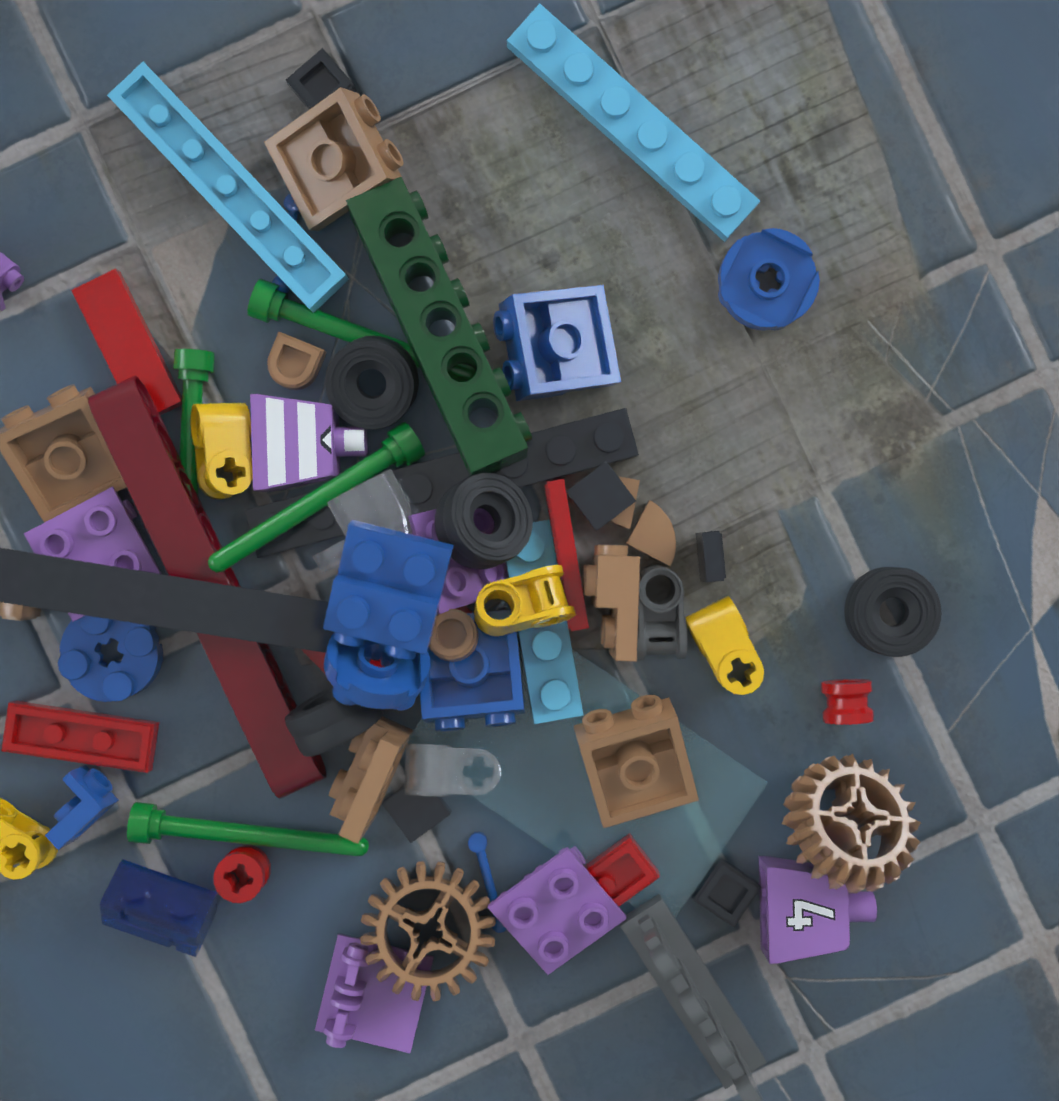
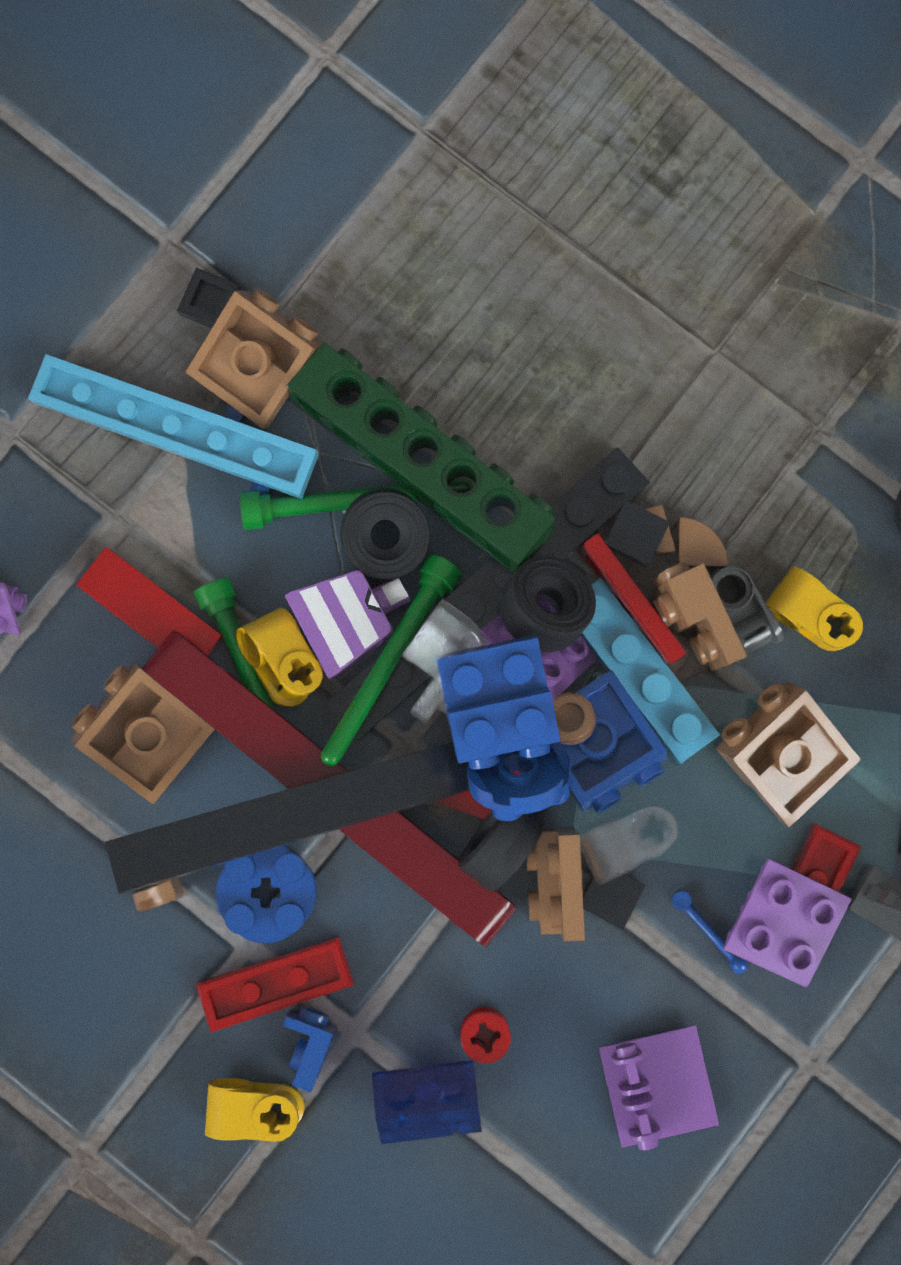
camera: 30 degrees left, 5 degrees down
(95, 533) = (201, 785): medium lavender hinge -> none
(150, 823) = (379, 1030): green piece -> none
(294, 362) = (304, 551): medium nougat tile -> none
(449, 941) = (679, 1023): medium nougat gear -> none
(534, 600) = (625, 651): yellow piece -> none
(557, 342) = (529, 419): plate -> none
(632, 122) = (498, 201): medium azure plate -> none
(710, 556) = (758, 539): black tile -> none
(795, 272) = (664, 297): blue plate -> none

